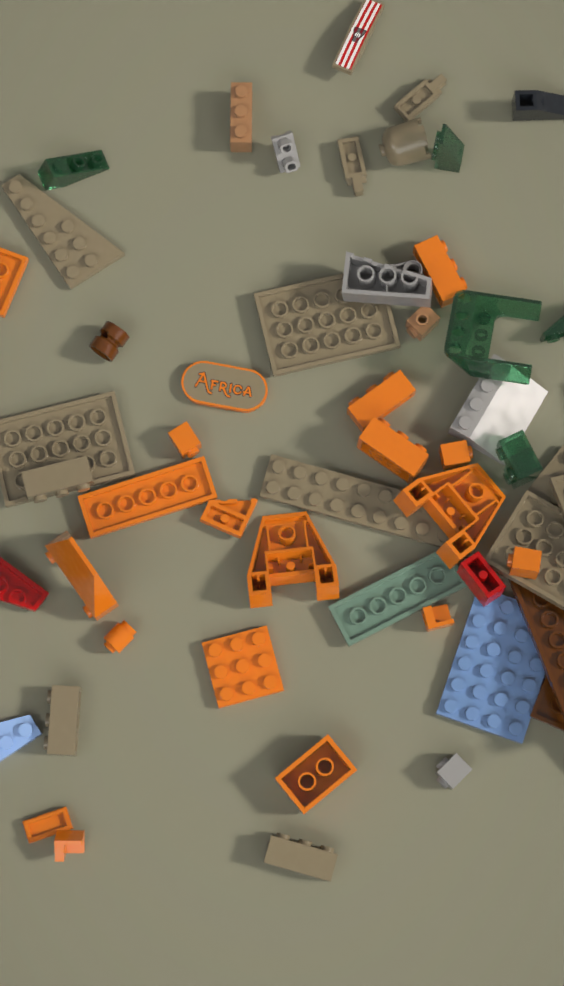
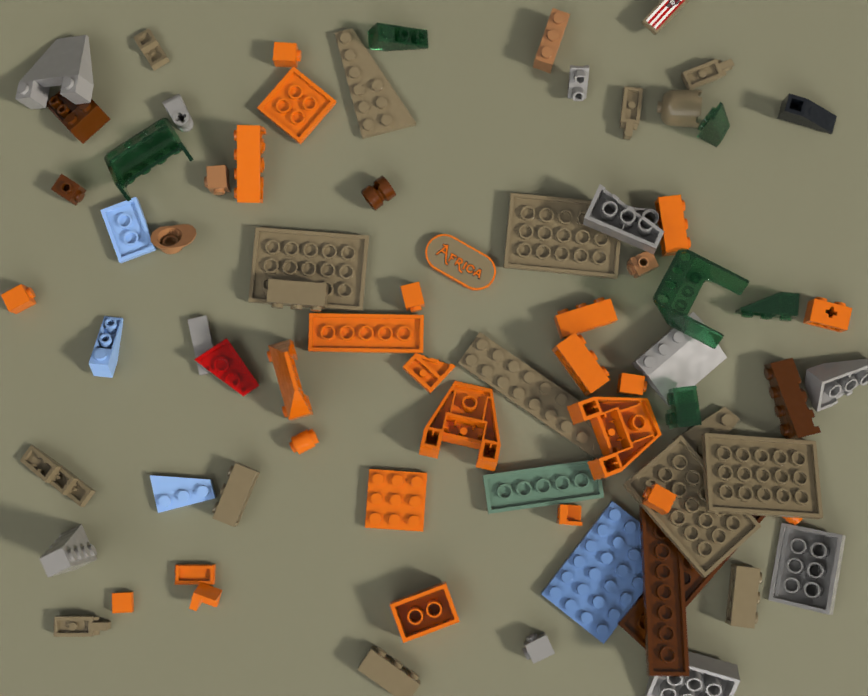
camera: 20 degrees right, 5 degrees up
(481, 579) = (617, 498): red brick -> none

